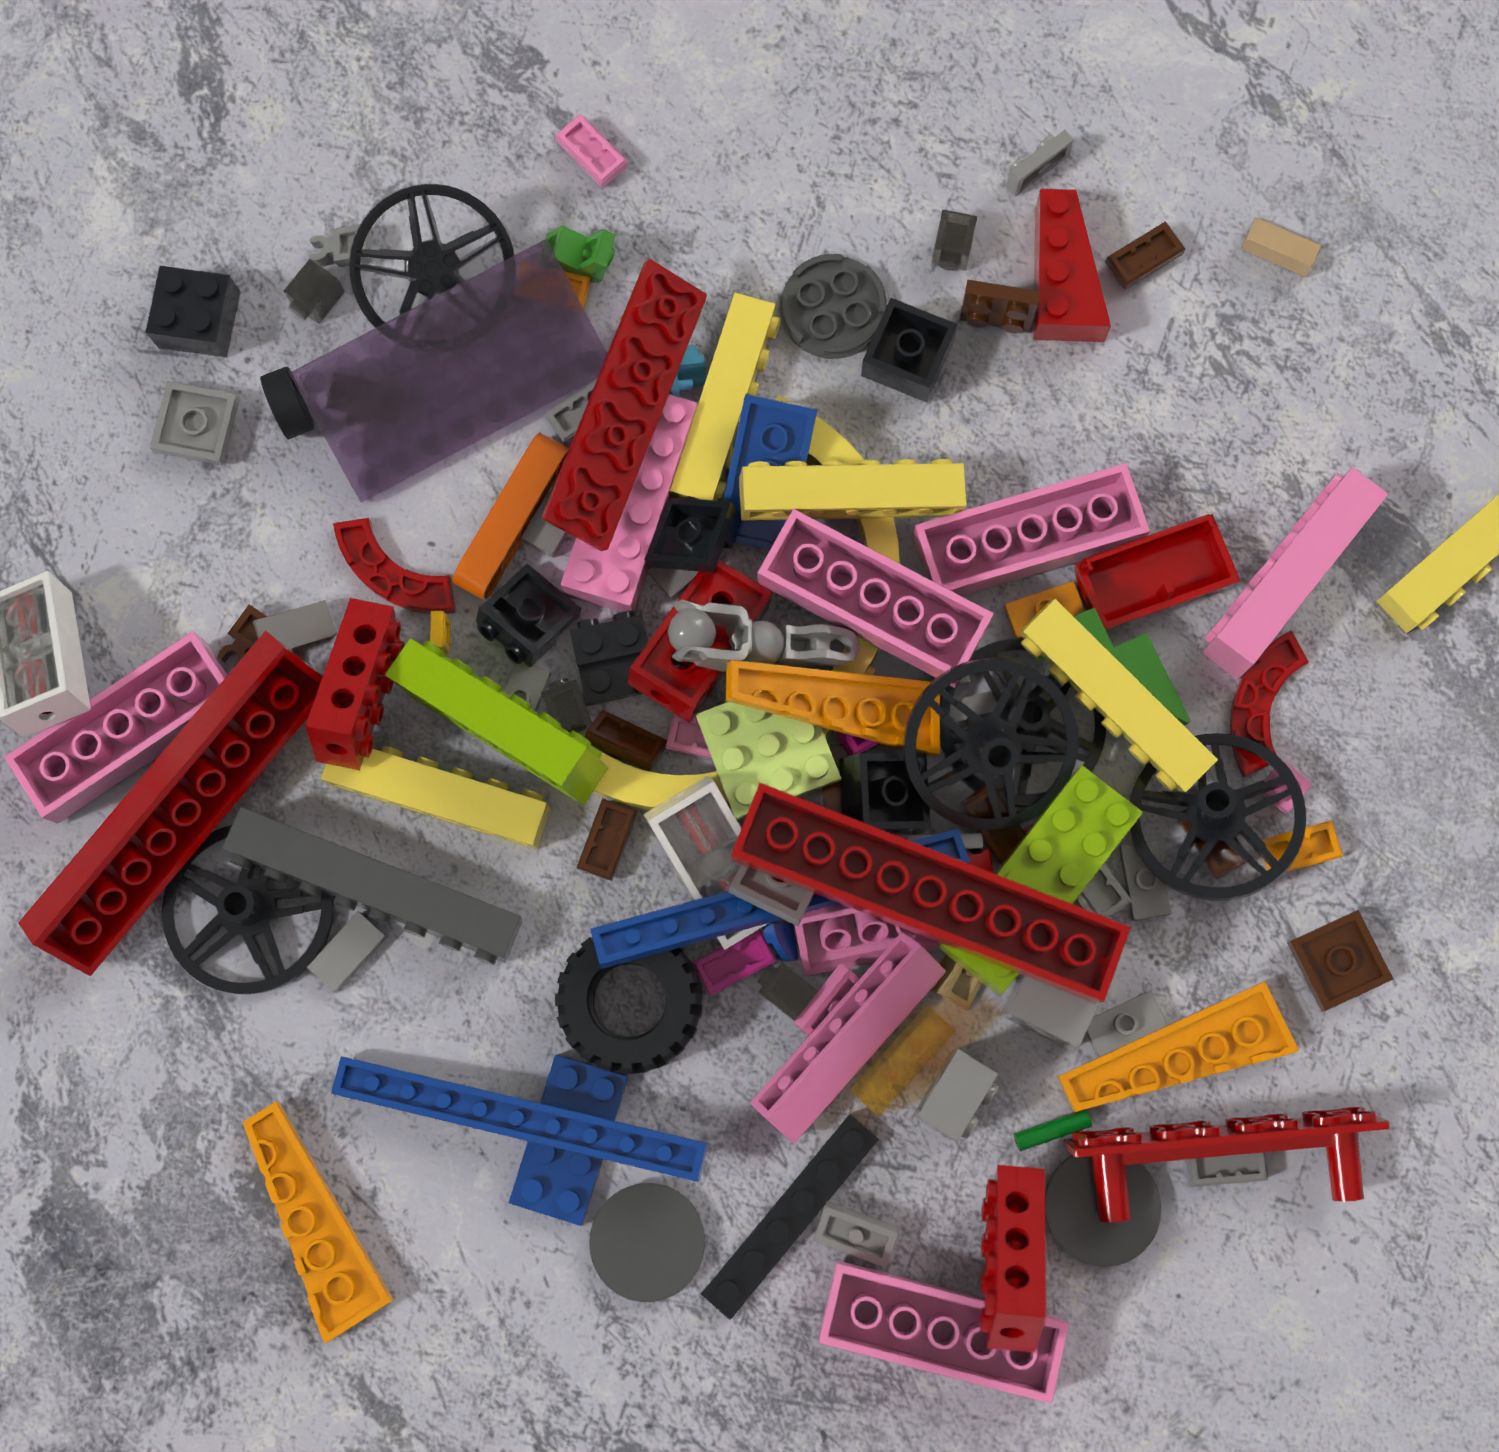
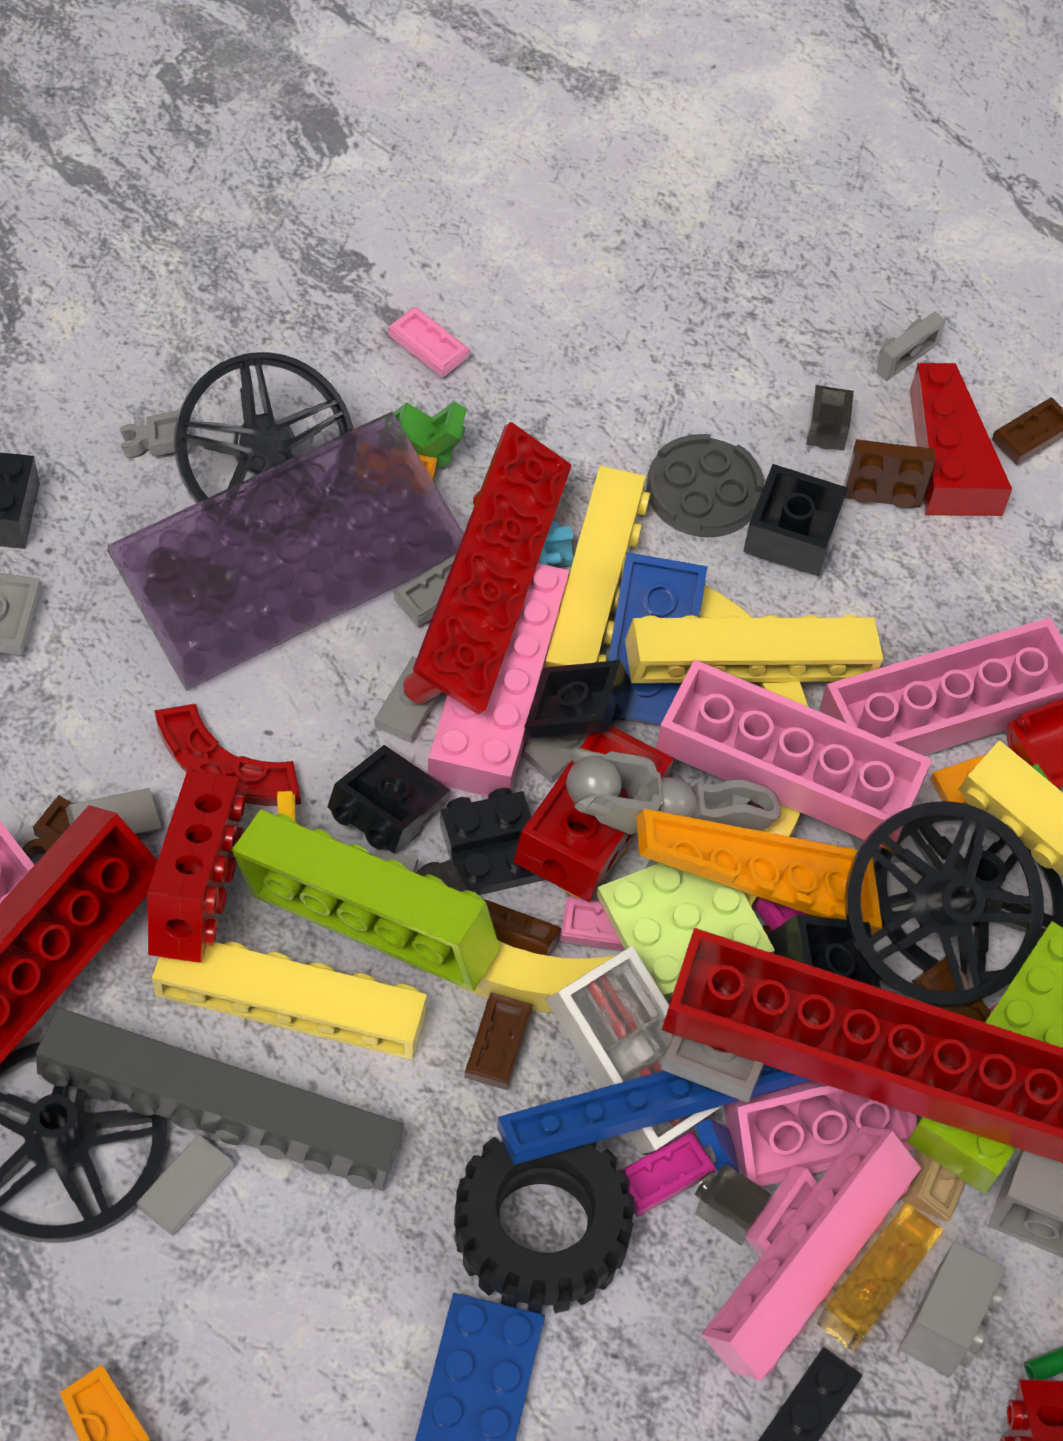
camera: 15 degrees left, 20 degrees down
(286, 403) = (101, 582): black tyre -> none
(313, 292) = (126, 477): clear smoke brick -> none
(509, 517) = (361, 696): orange beam -> none
(521, 1119) = (417, 1365): blue plate -> none

